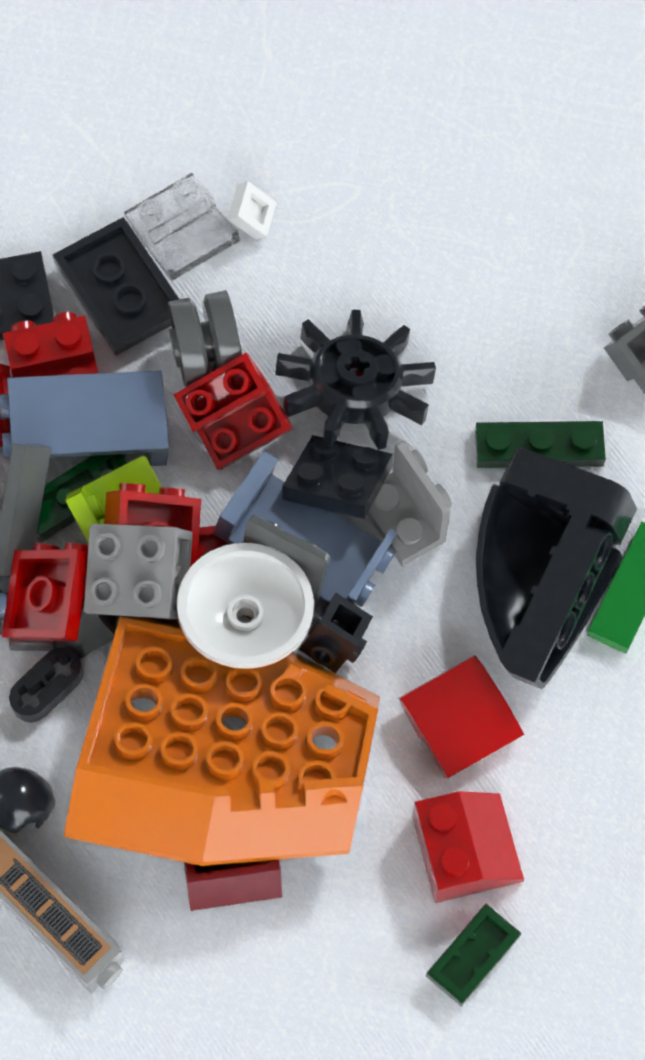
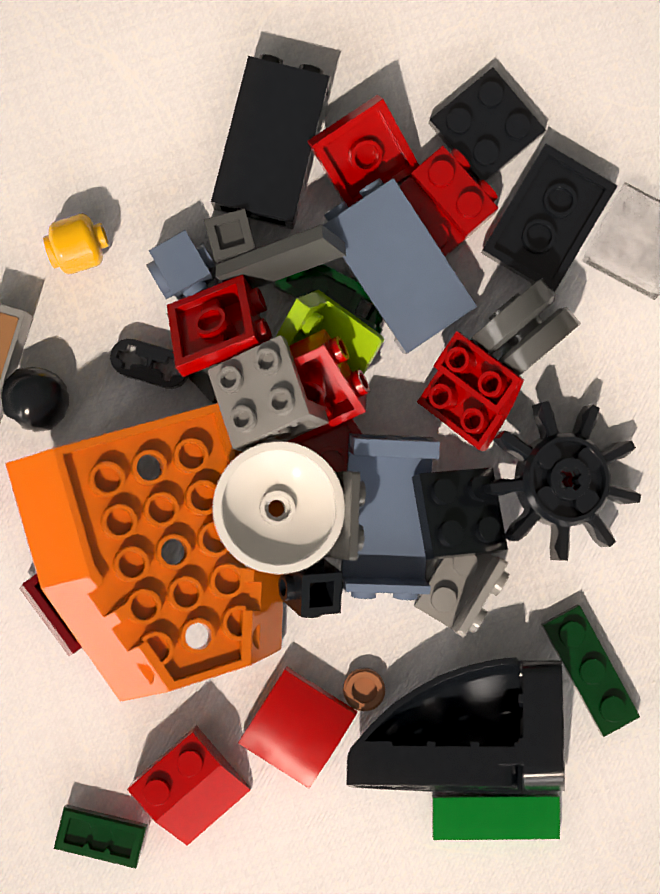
camera: 60 degrees right, 20 degrees up
(456, 643) = (364, 689): none -> nougat tile

